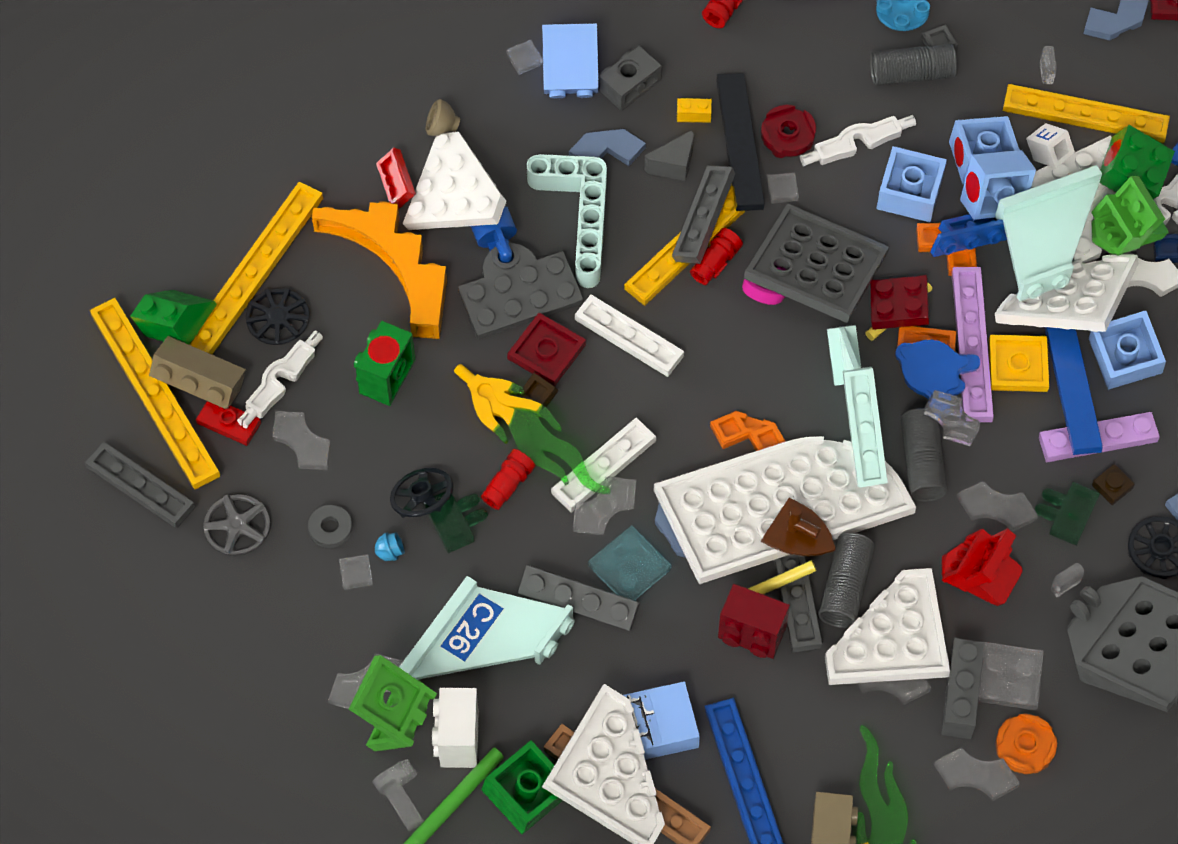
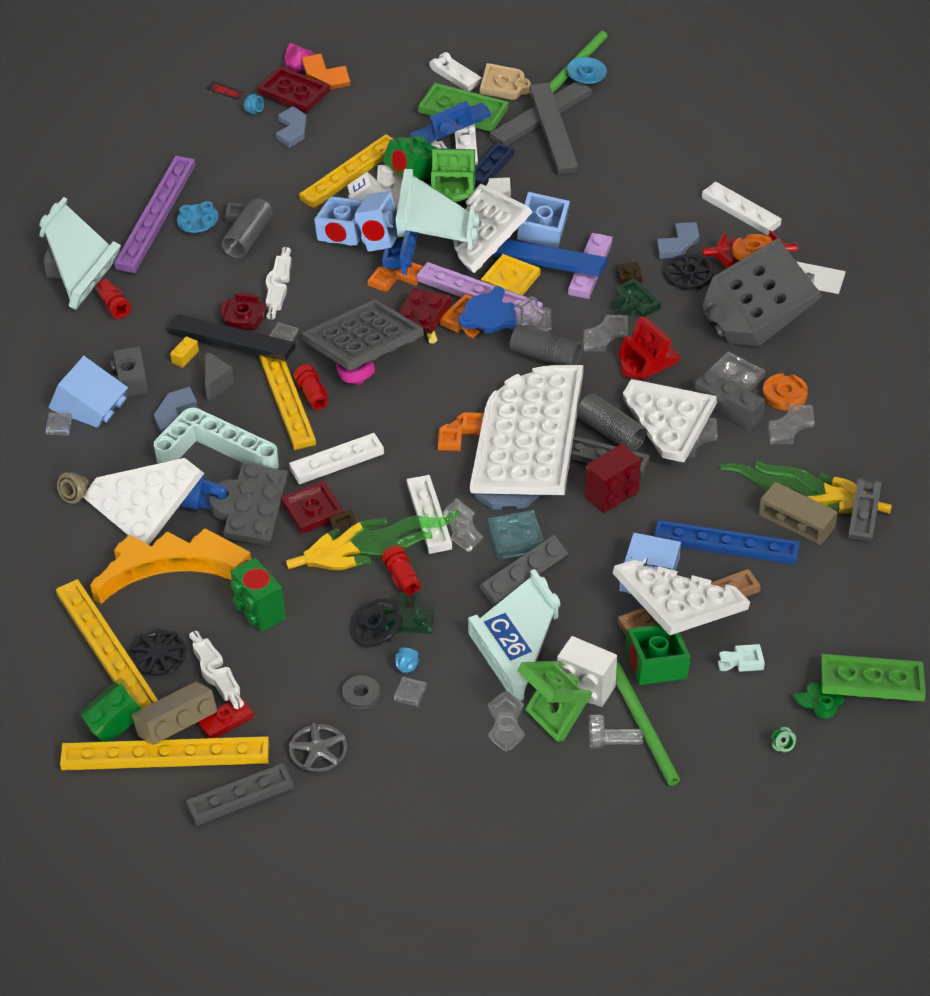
camera: 60 degrees left, 15 degrees down
(310, 449) = (286, 678): clear tile -> none
(395, 178) = (100, 532): red plate -> none
(703, 214) = (277, 375): dark grey plate -> none
(784, 578) = (589, 455): light yellow bar -> none
(799, 531) = (562, 426): reddish brown shield -> none
(861, 405) = (488, 348): light aqua piece -> none
(911, 184) = (339, 265): light blue brick -> none
(1048, 65) = (302, 168): clear tile -> none
(1067, 579) = (684, 320): clear tile -> none

